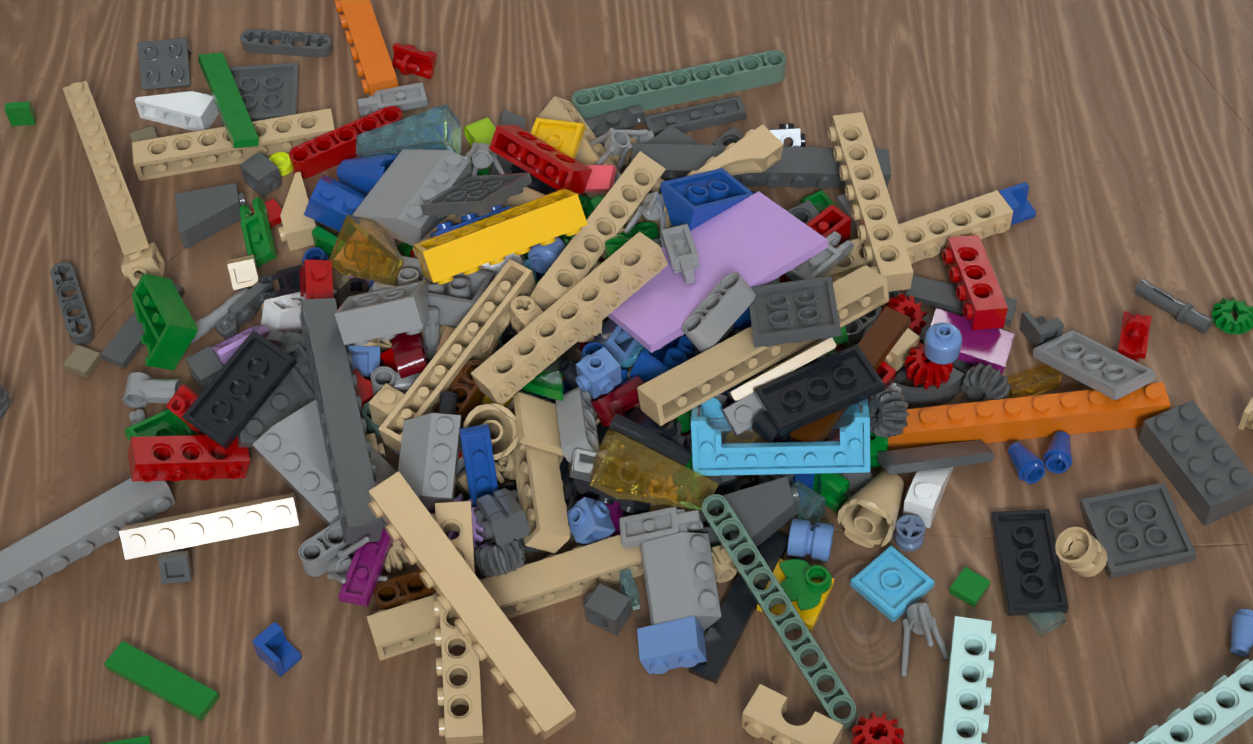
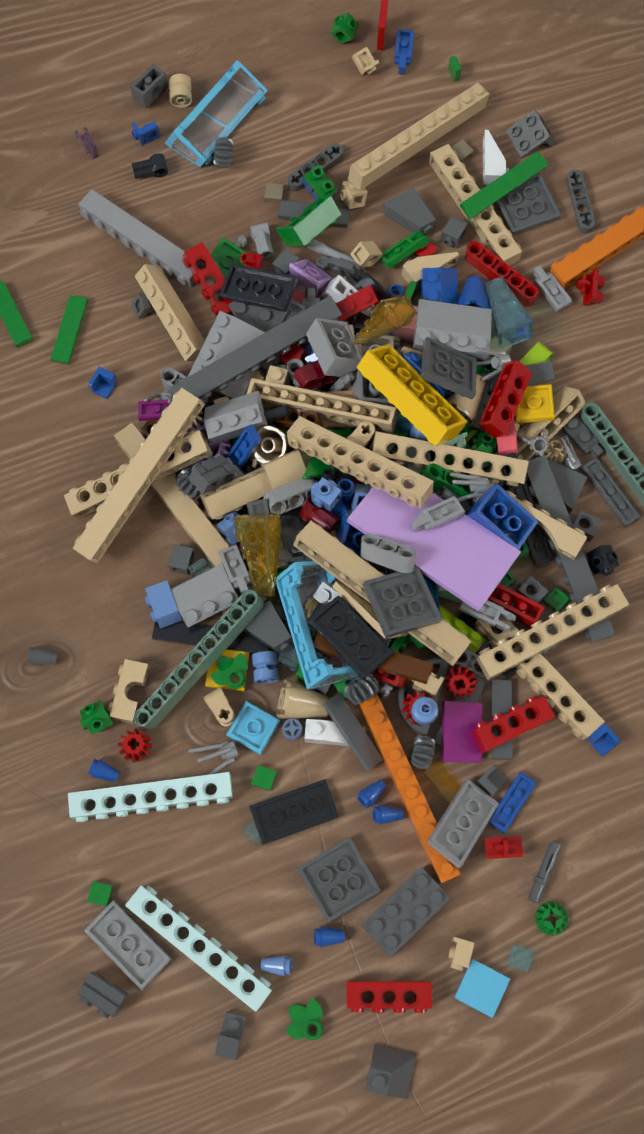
camera: 70 degrees right, 20 degrees up
(108, 296) = (318, 183): none -> green hips
(282, 161) = (469, 237): neon yellow tile -> none
(650, 439) = (281, 542): black axle -> none
(850, 613) = (219, 705): none -> tan piece
(1073, 316) = (512, 802): none -> blue tile
(1081, 551) = (302, 844): tan wheel -> none
(1214, 562) = (328, 936): none -> blue cone

